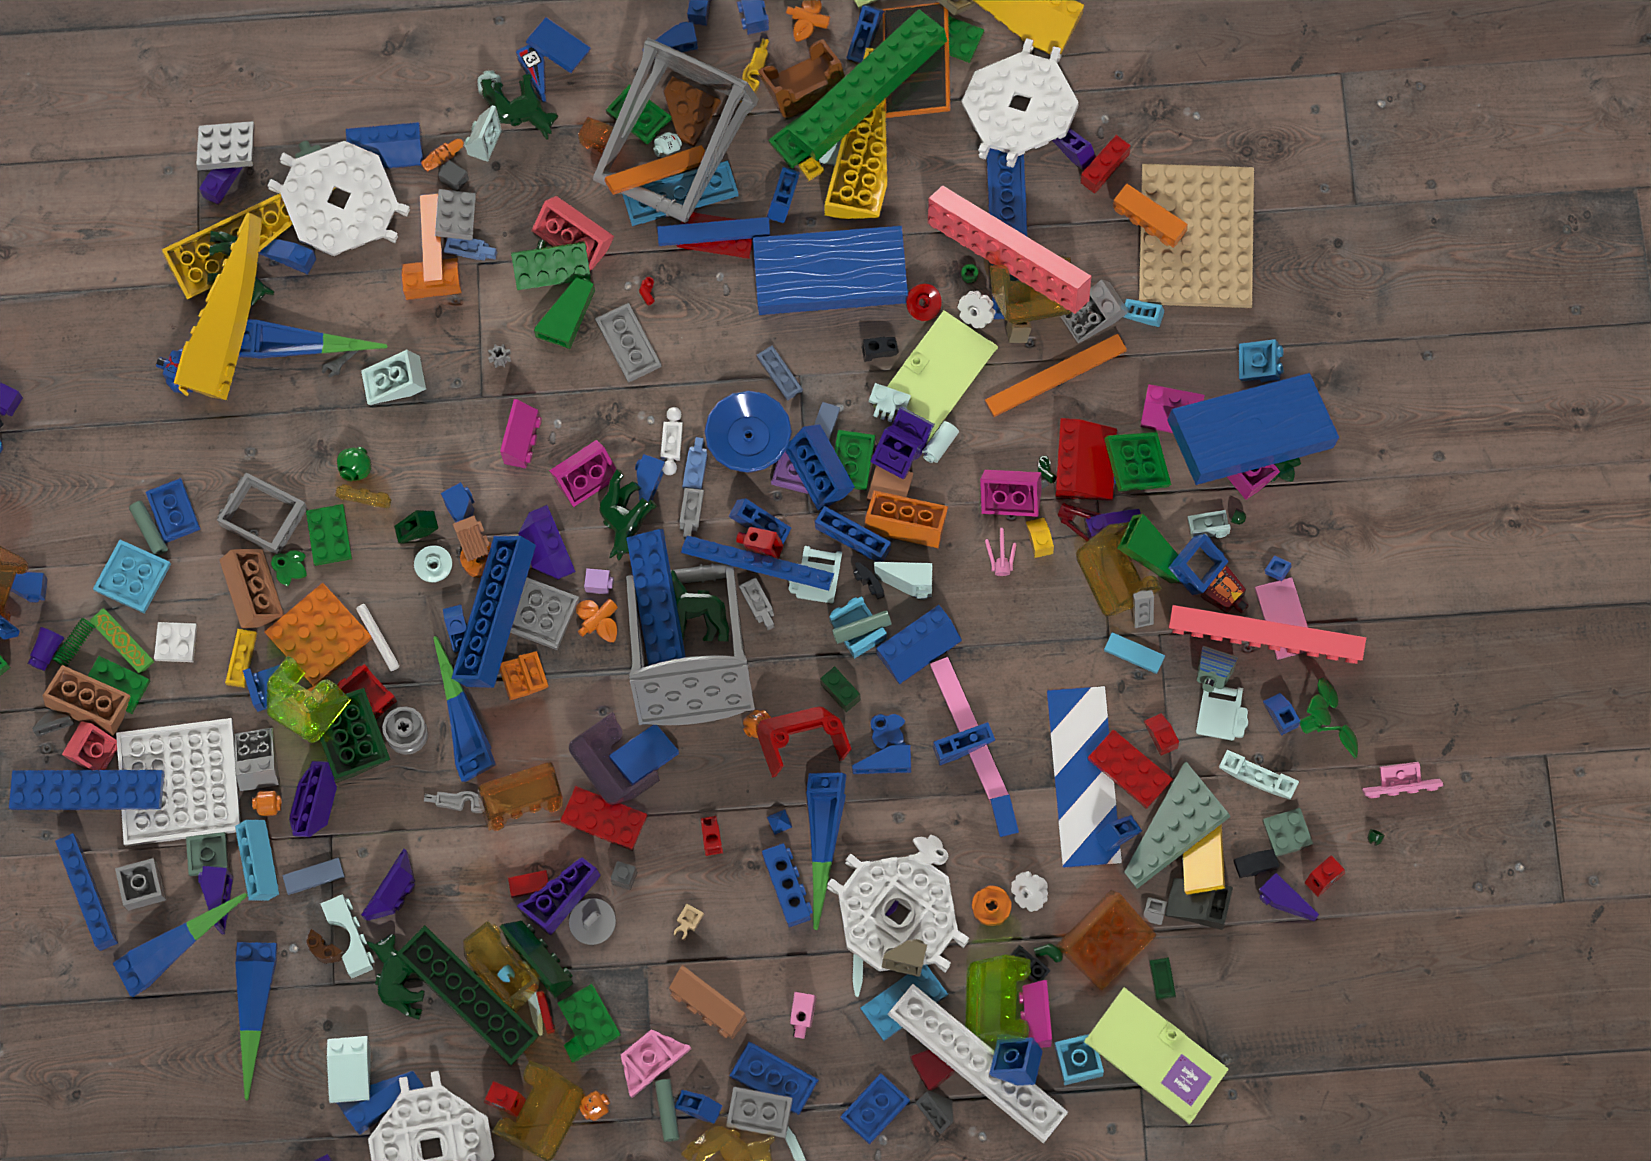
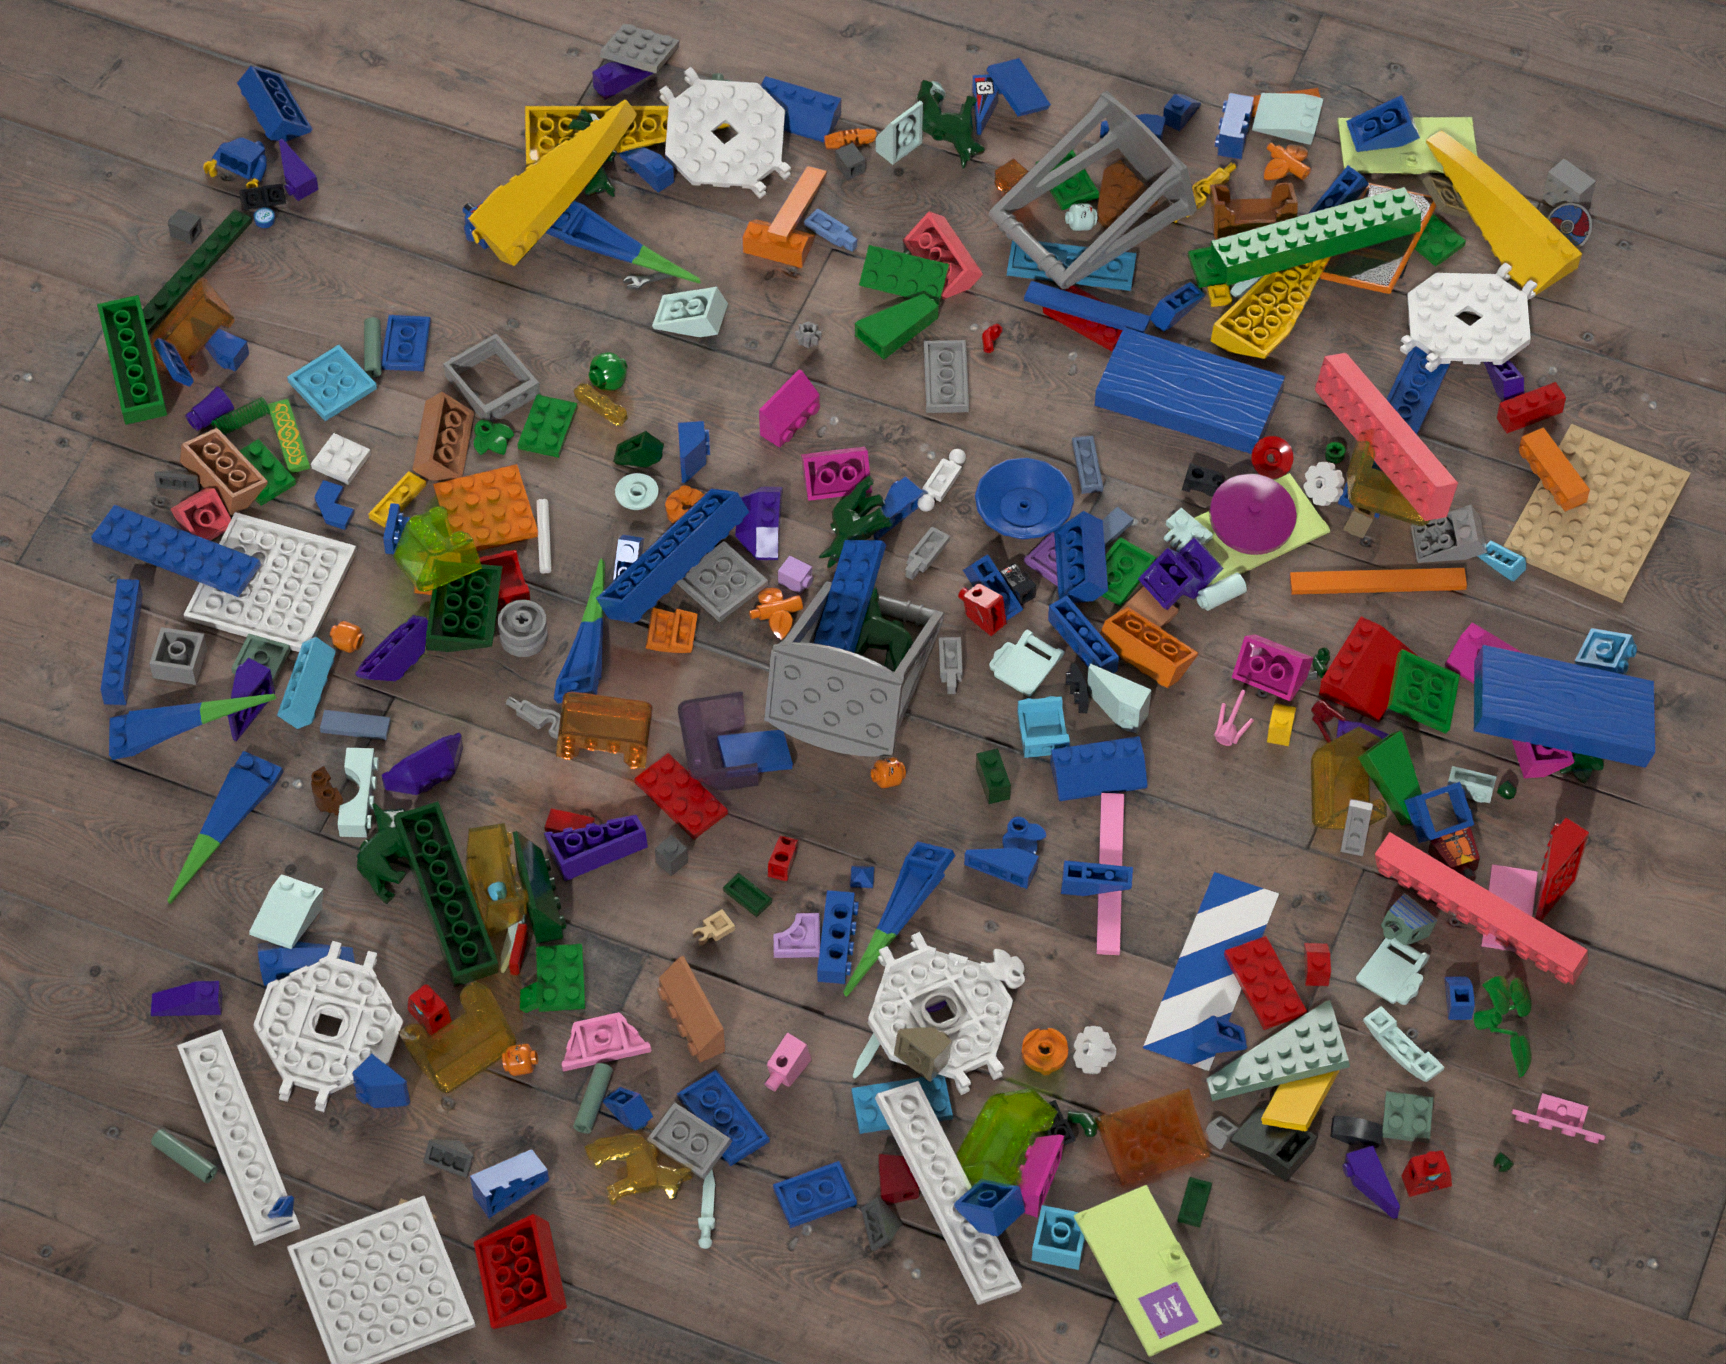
camera: 20 degrees right, 15 degrees down
(195, 695) = (333, 513): none -> blue tile
(256, 759) = (358, 594): light grey slope -> none
(455, 214) = (832, 192): light grey plate -> none
(471, 539) = (686, 477): nougat brick -> none
(592, 921) = (615, 887): light grey shield -> none
(655, 170) = (1048, 228): orange tile -> none
(695, 466) = (955, 511): medium blue hinge -> none
(698, 879) = (747, 894): none -> dark green tile
(757, 563) = (970, 623): blue plate -> none
(758, 898) = (800, 939): none -> lavender tile
(775, 732) = (935, 788): red windscreen -> none
(777, 507) = (1019, 583): none -> black leg
(861, 627) = (1046, 726): sand green piece -> none
(933, 362) = (1252, 514): none -> magenta dish
(1004, 815) = (1104, 969): blue tile -> none
(1134, 653) = (1327, 874): medium azure tile -> none
(1278, 568) = (1526, 856): blue plate -> none
(1310, 573) = (1561, 864): none -> red slope

